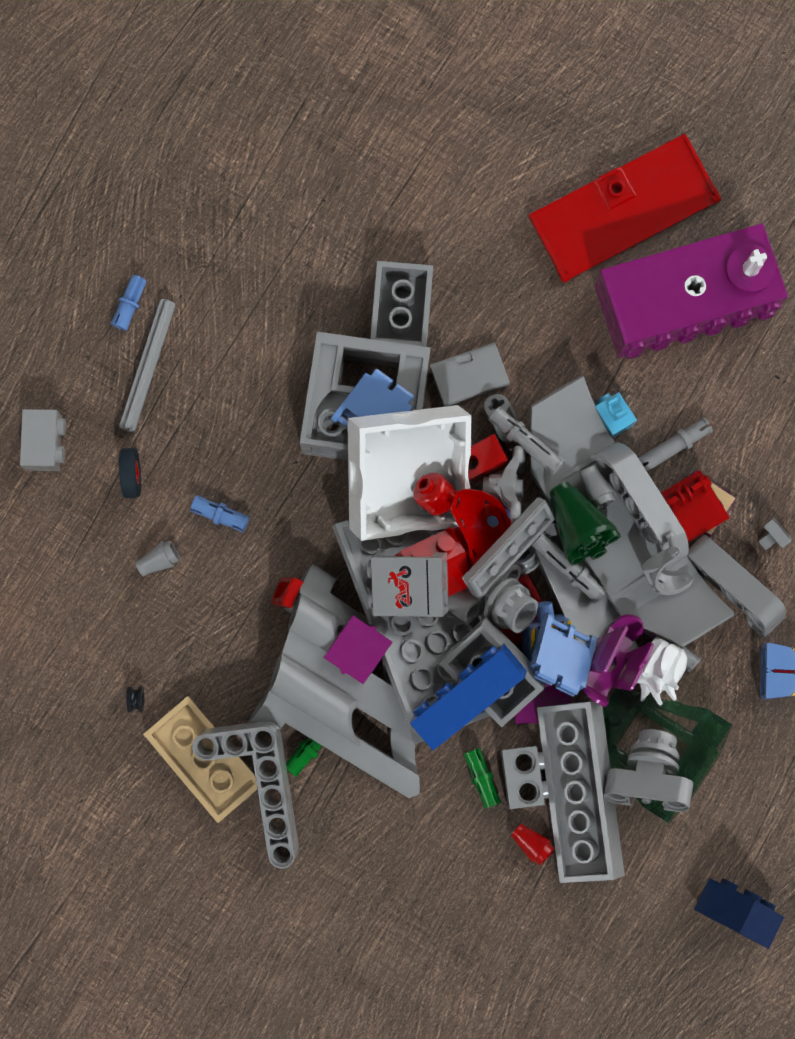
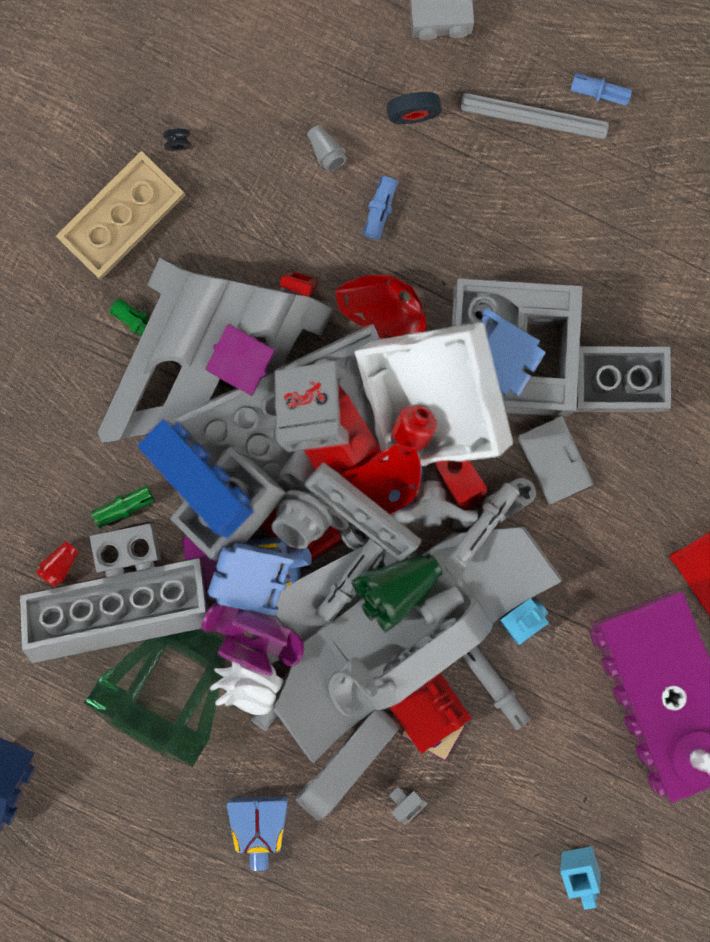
camera: 85 degrees right, 5 degrees up
(265, 779) = (100, 278): light grey beam -> none
(316, 516) = (382, 305): none -> red piece
(652, 774) = (150, 684): light grey beam -> none

